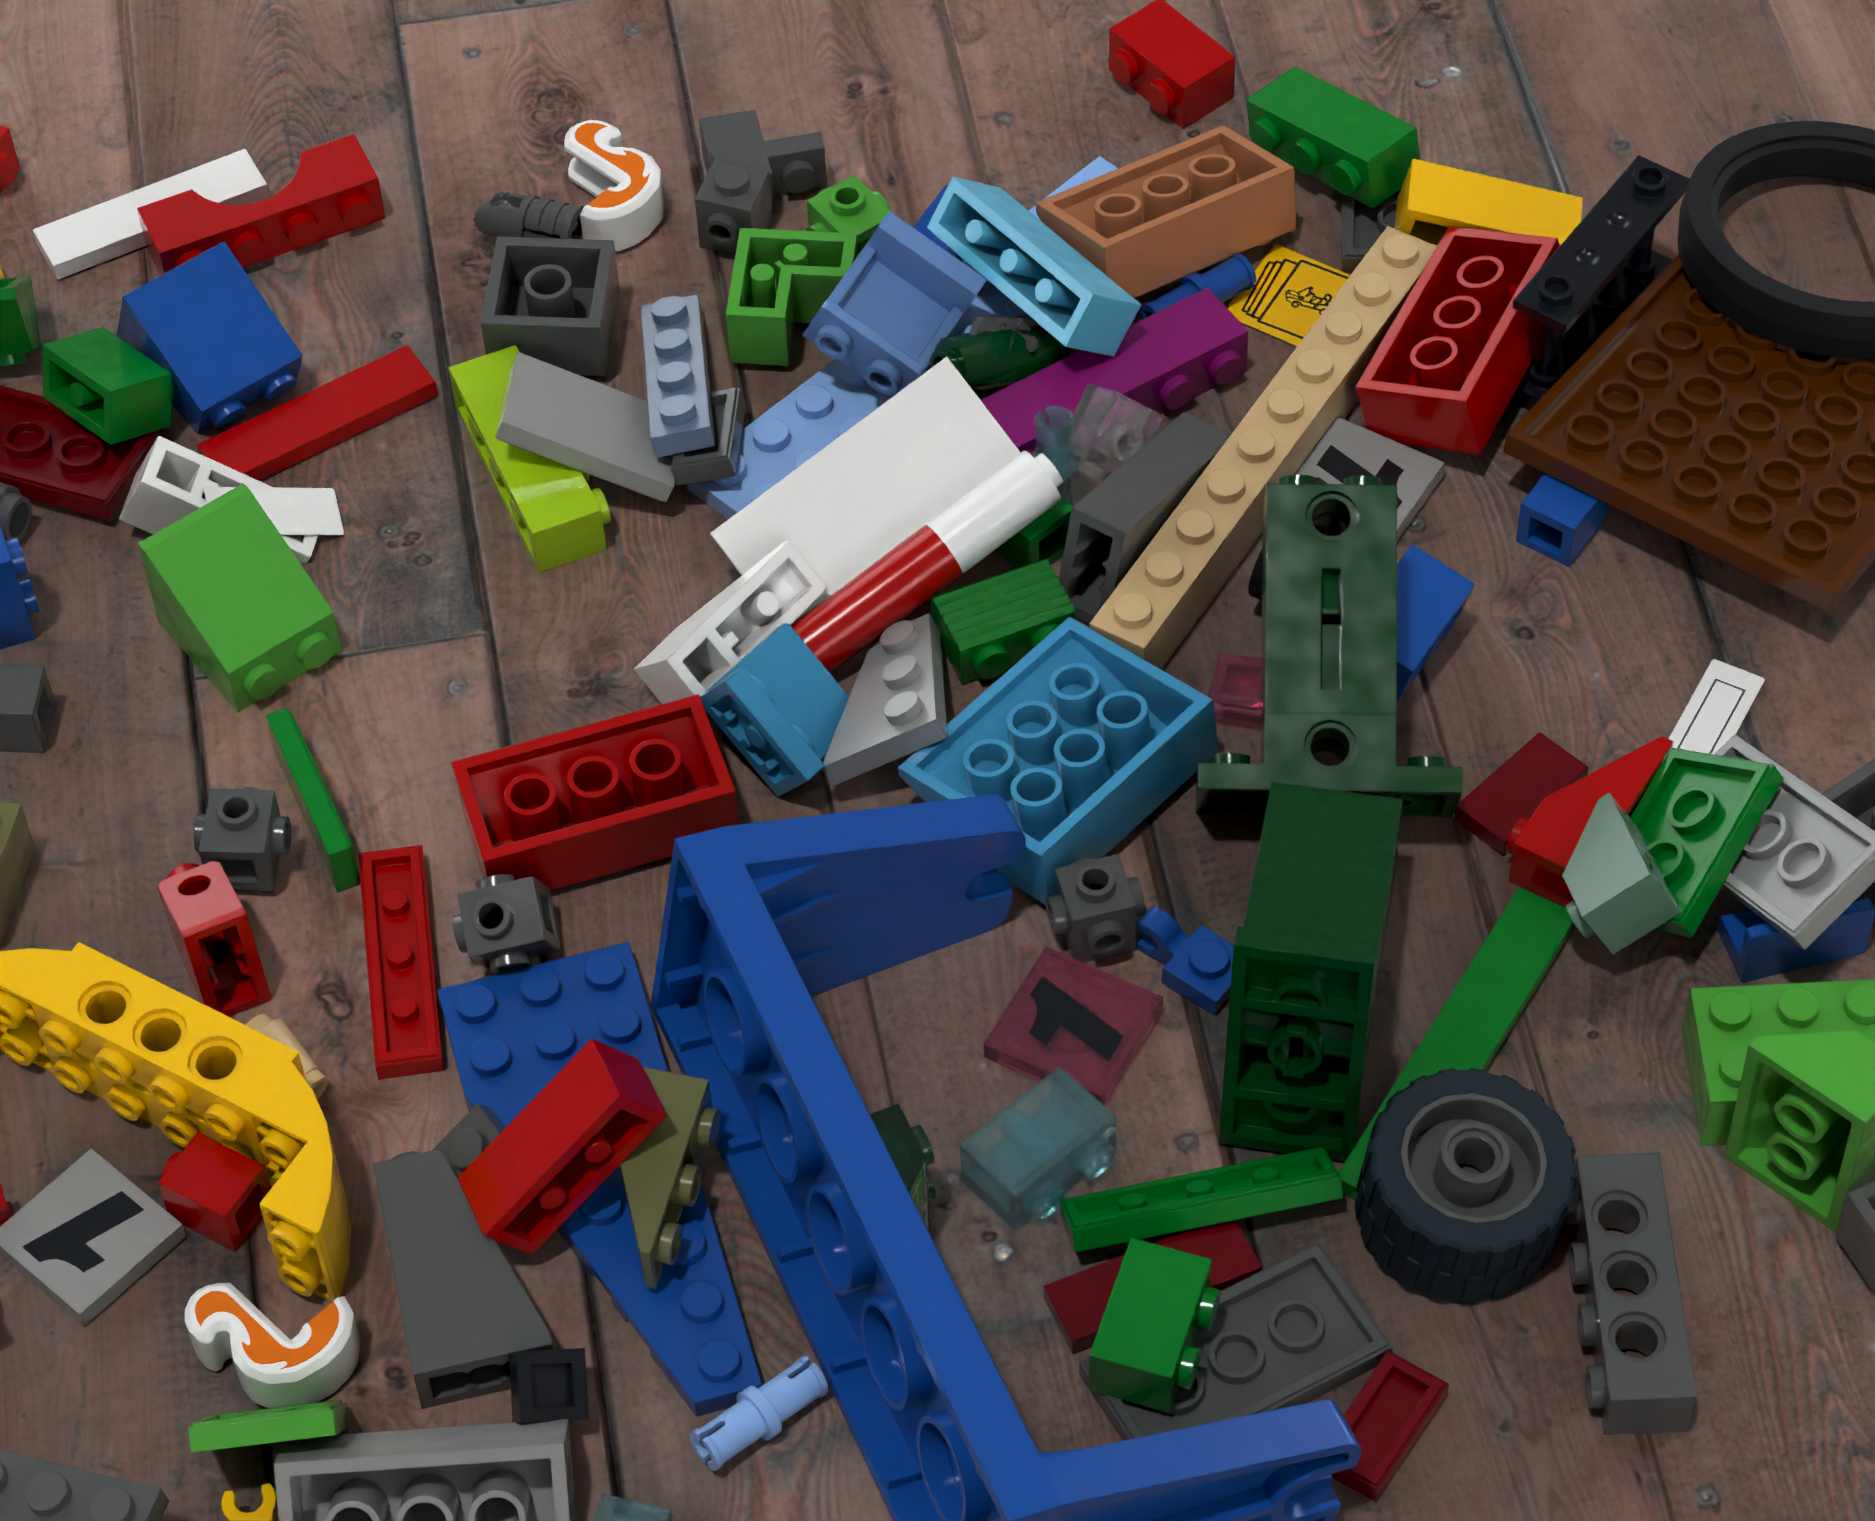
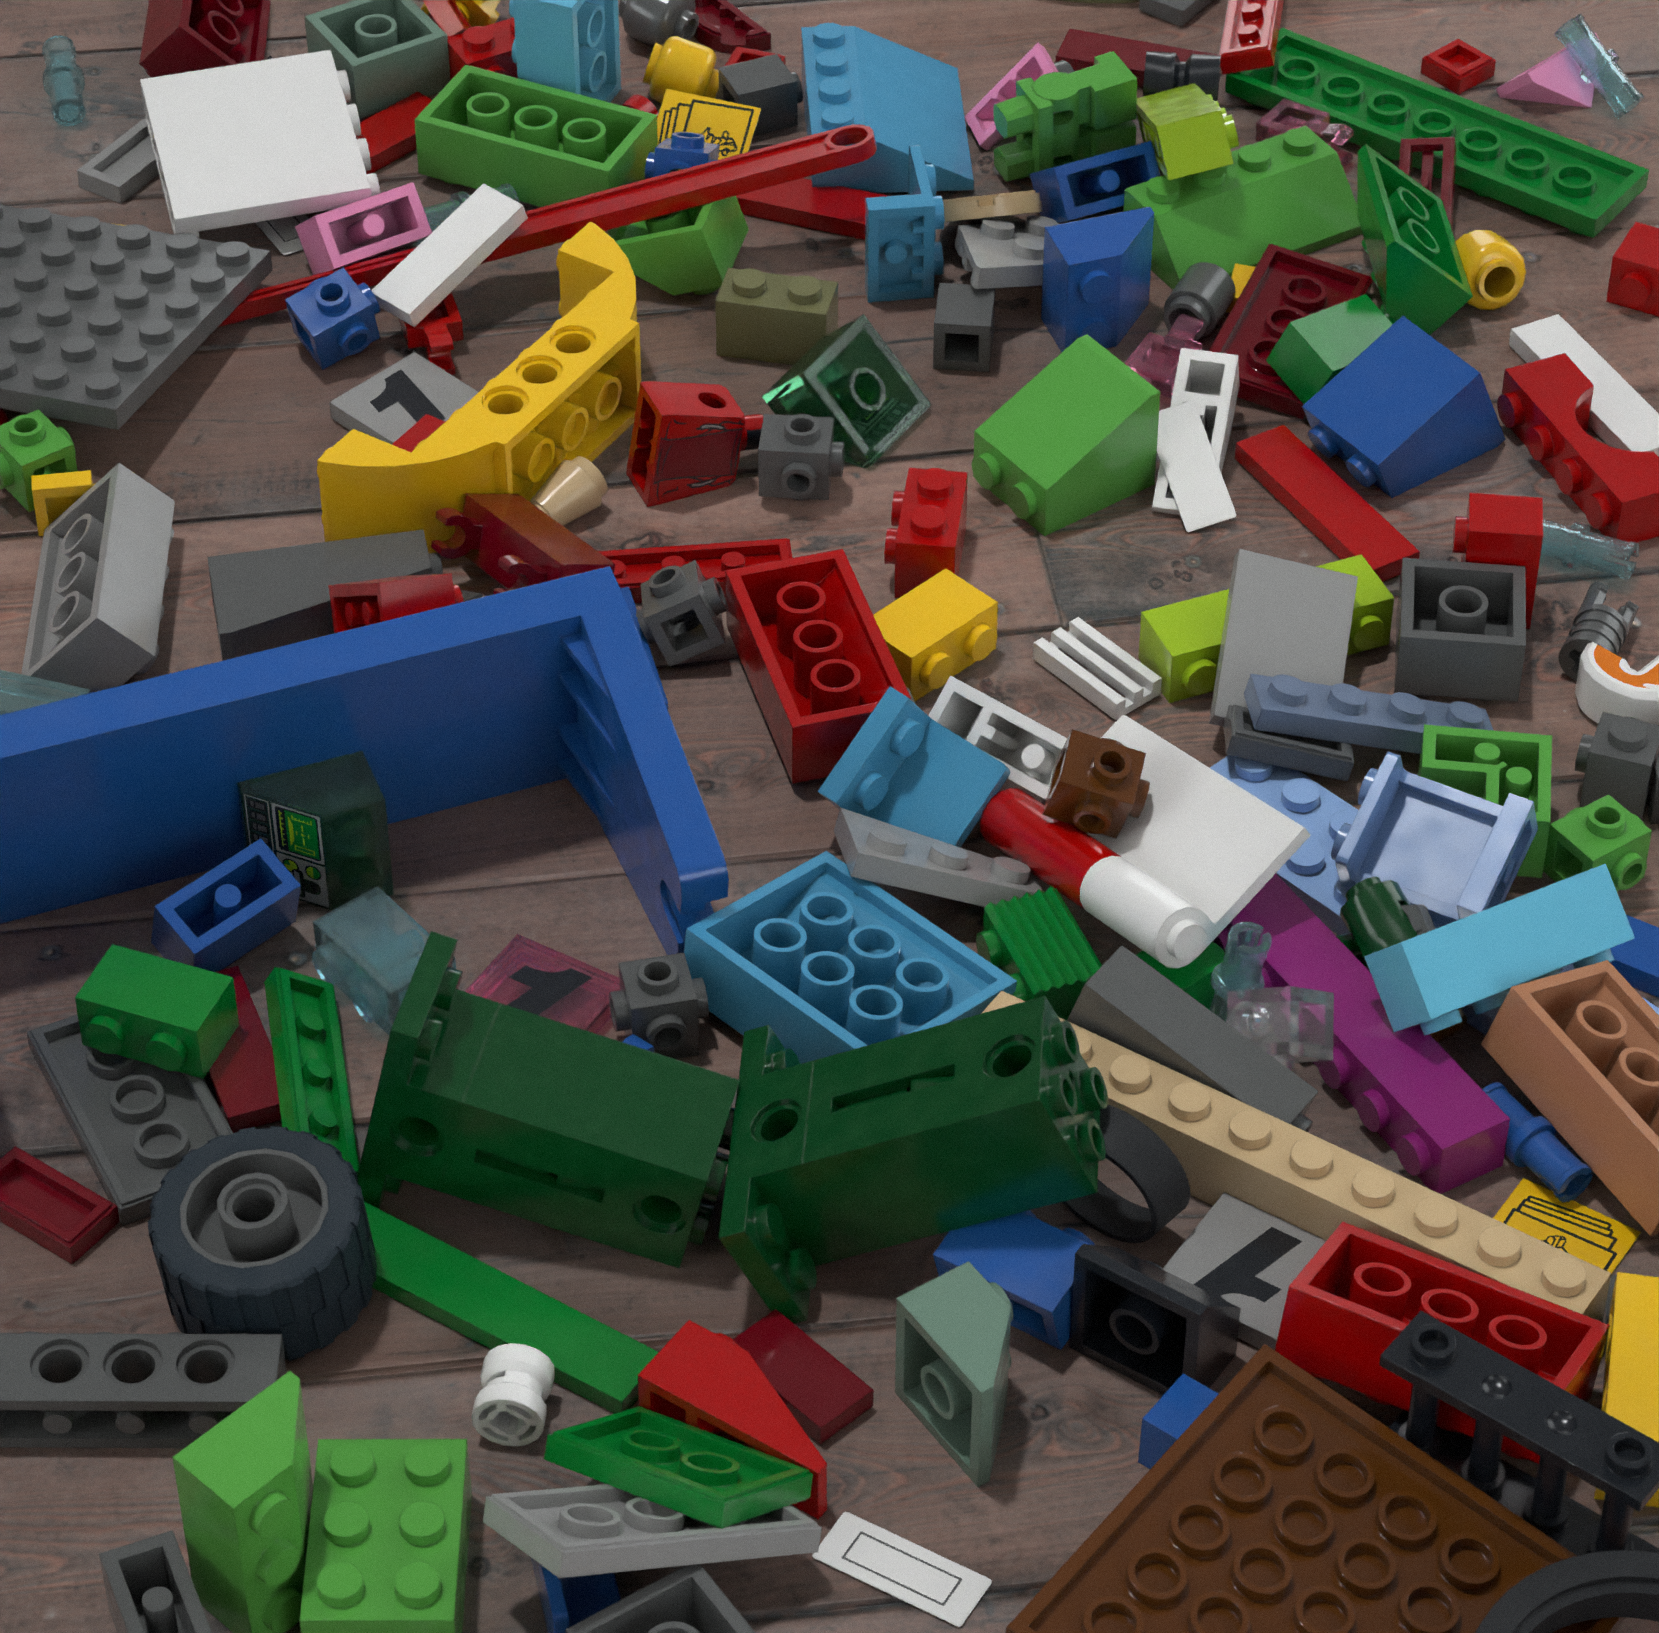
camera: 90 degrees right, 10 degrees down
(77, 540) = (1158, 356): none -> clear pink plate
(116, 810) = (858, 384): none -> clear green slope
(266, 1361) = (265, 495): white animal -> none
(268, 1426) = (177, 483): bright green tile -> none
(313, 799) = (836, 503): green tile -> none
(375, 721) = (929, 524): none -> red brick
(403, 233) = (1581, 547): none -> clear light blue pin
(432, 1052) = (515, 541): none -> dark red brick
(458, 263) = (1503, 533): none -> red brick
(521, 703) = (938, 631): none -> yellow brick
(548, 1385) = (186, 638): black tile -> none
(560, 592) = (1104, 665): none -> white tile
(840, 536) = (1096, 784): none -> reddish brown brick
(1005, 1285) = (227, 910): none -> blue brick
(1462, 512) = (1148, 1320): none -> black slope
(1543, 645) = (956, 1364): none -> sand green slope
(1605, 993) = (513, 1407): none -> white wheel
(1615, 880) = (625, 1388): sand green slope -> none

